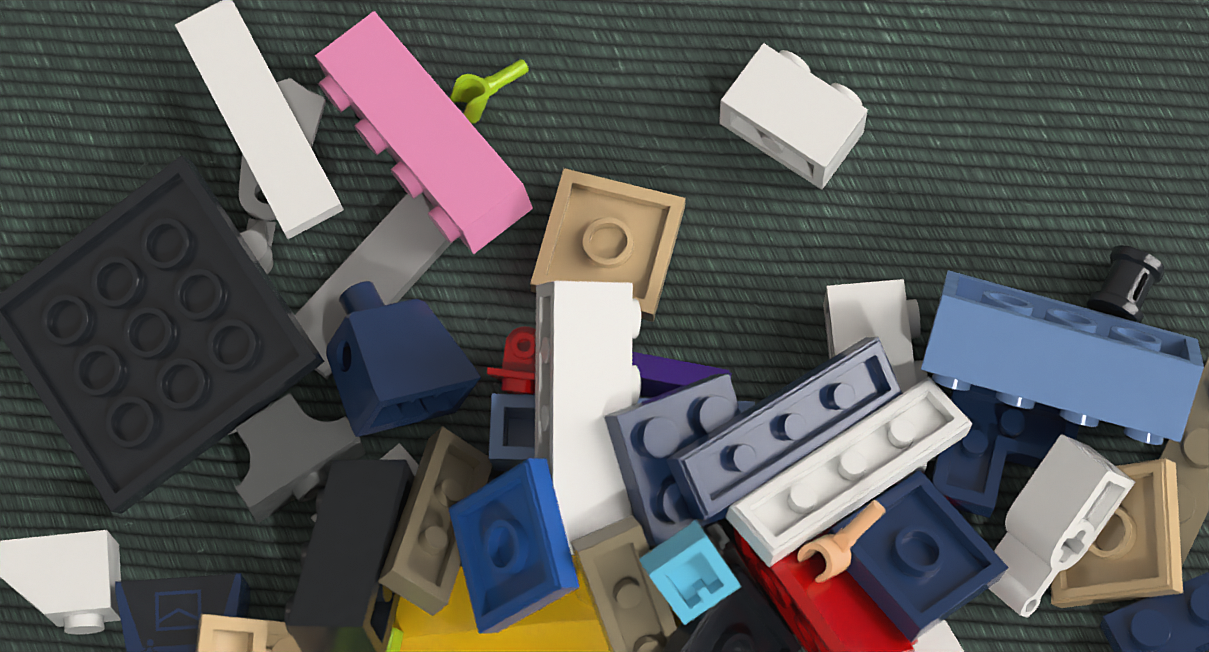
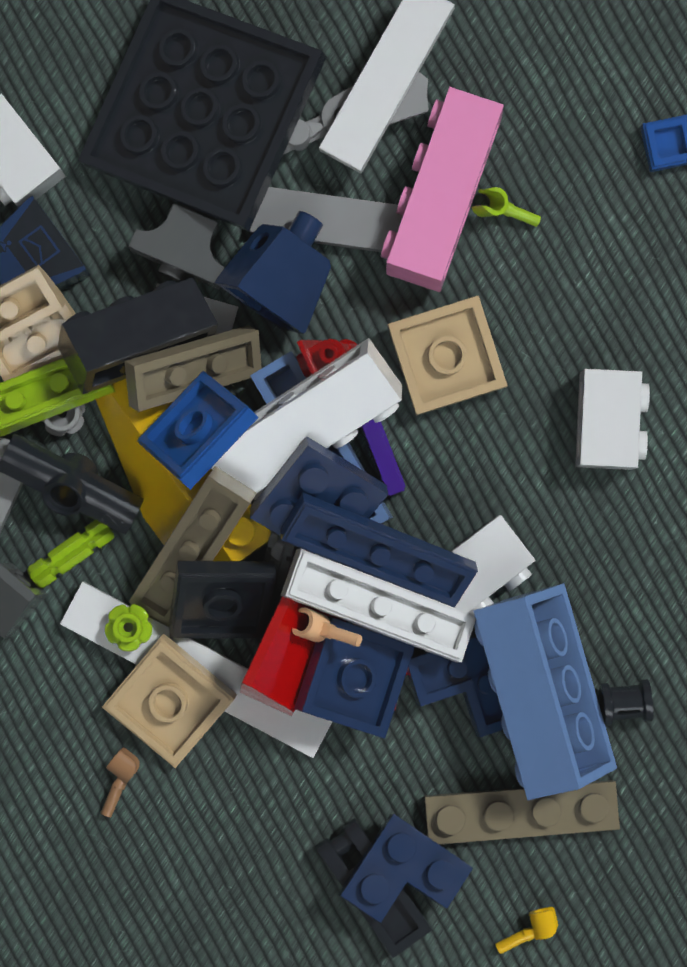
camera: 50 degrees right, 15 degrees up
(689, 572) = (244, 550): medium azure bracket -> none
(1056, 520) = (438, 749): white piece -> none
(1135, 550) = (452, 789): tan tile -> none

